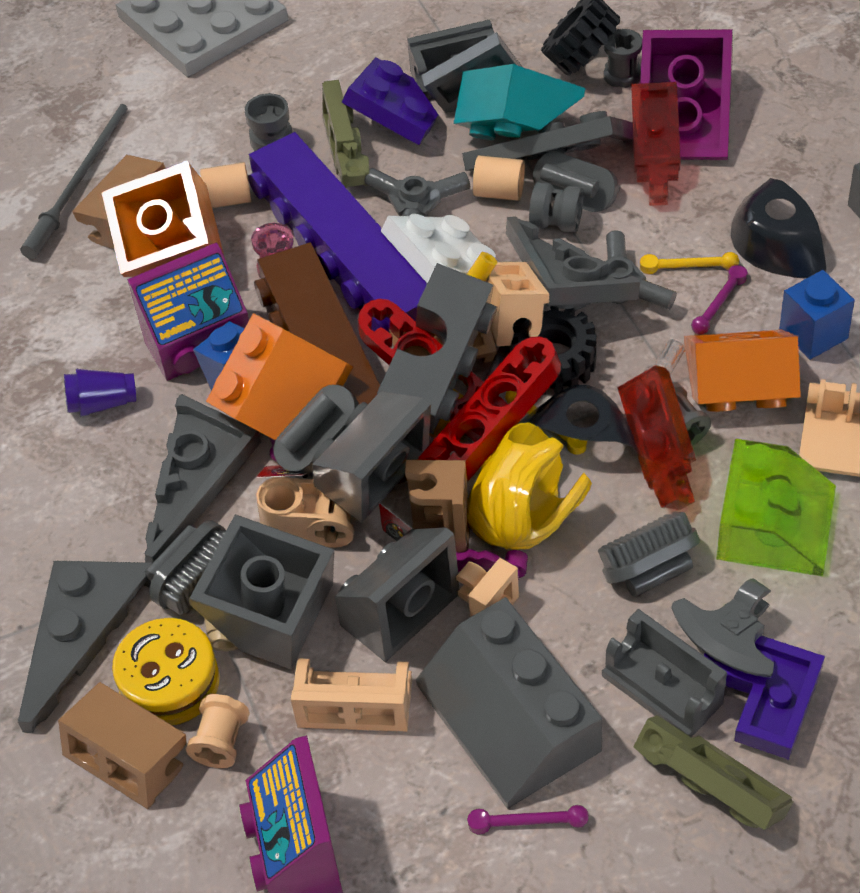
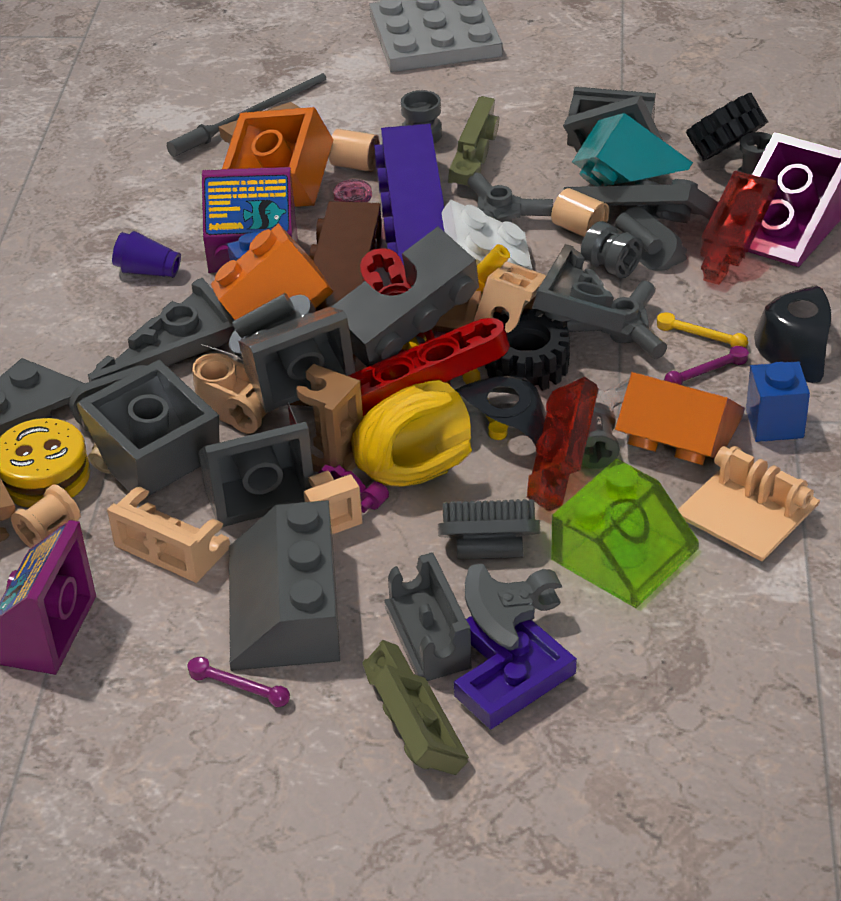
camera: 25 degrees right, 10 degrees down
(392, 100) = (532, 130): dark purple plate -> none

